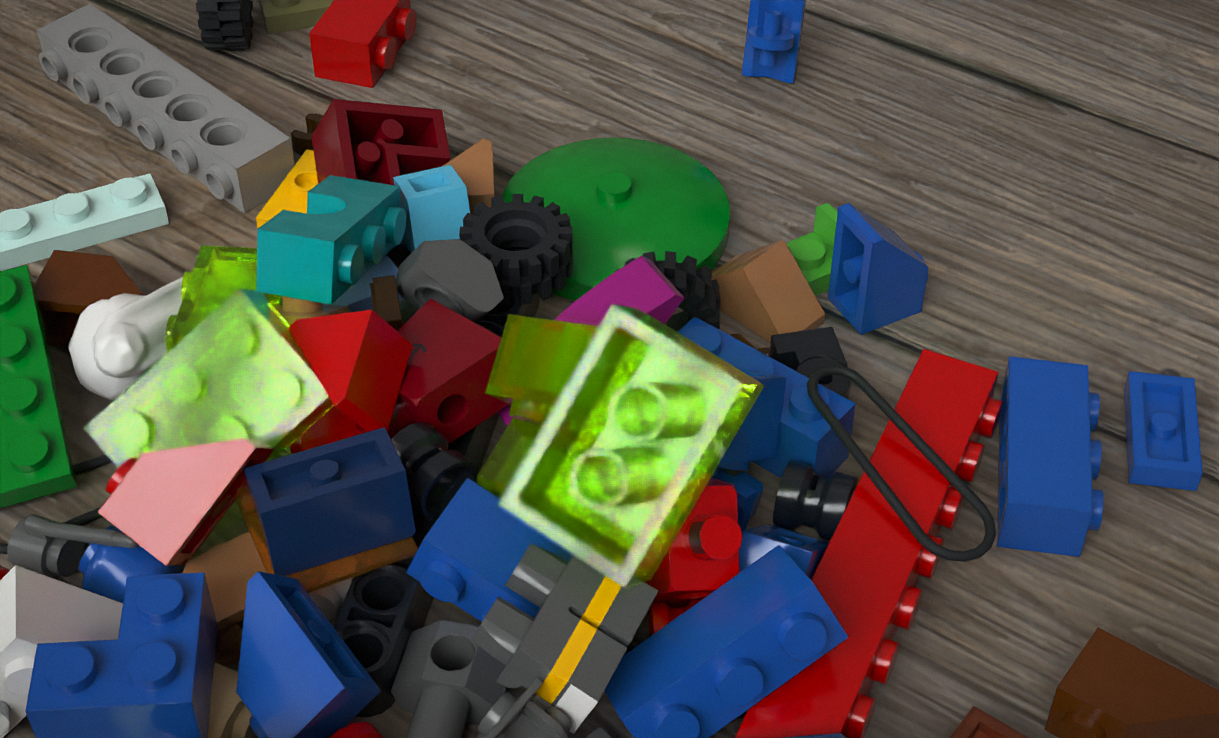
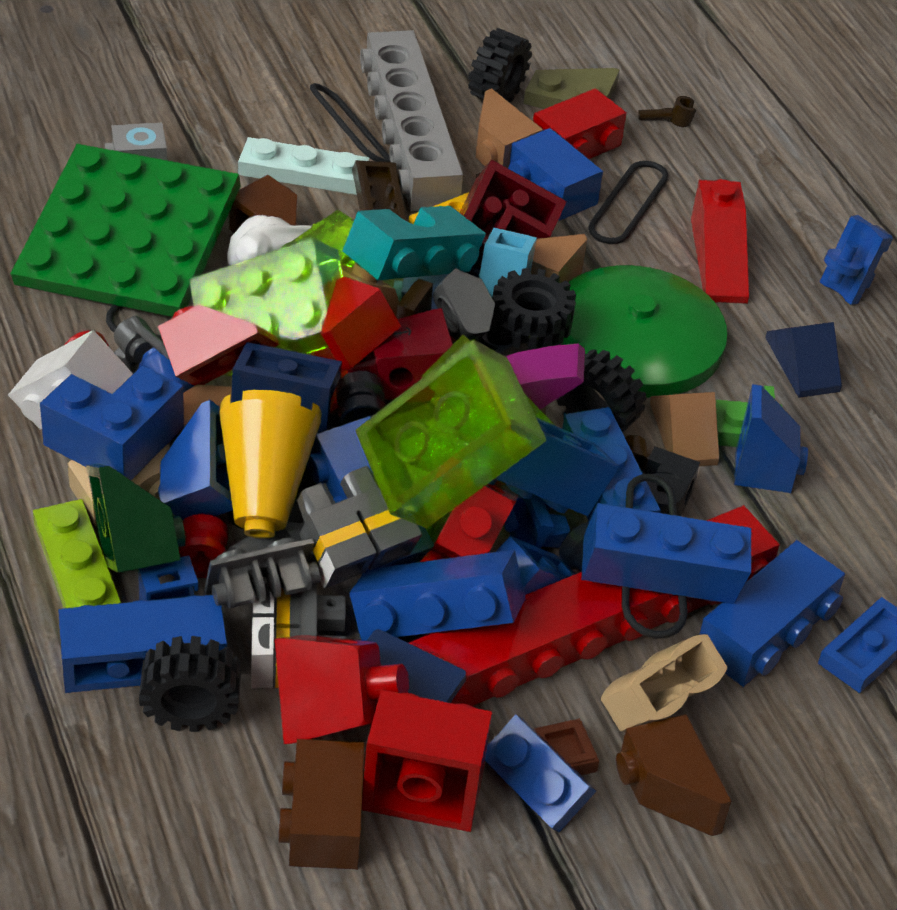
camera: 30 degrees right, 0 degrees up
(27, 126) = (314, 89): none -> black piece
(201, 209) = (378, 187): none -> dark brown plate
(287, 74) = (499, 128): none -> medium nougat slope
(379, 76) = (558, 169): none -> blue brick
(383, 607) = (266, 456): none -> yellow cone
(454, 88) = (614, 240): none -> black piece
(616, 77) = (721, 240): none -> red slope
(809, 155) = (808, 358): none -> dark blue slope
(931, 450) = (666, 553): none -> blue brick
(1035, 606) = (664, 682): none -> tan brick

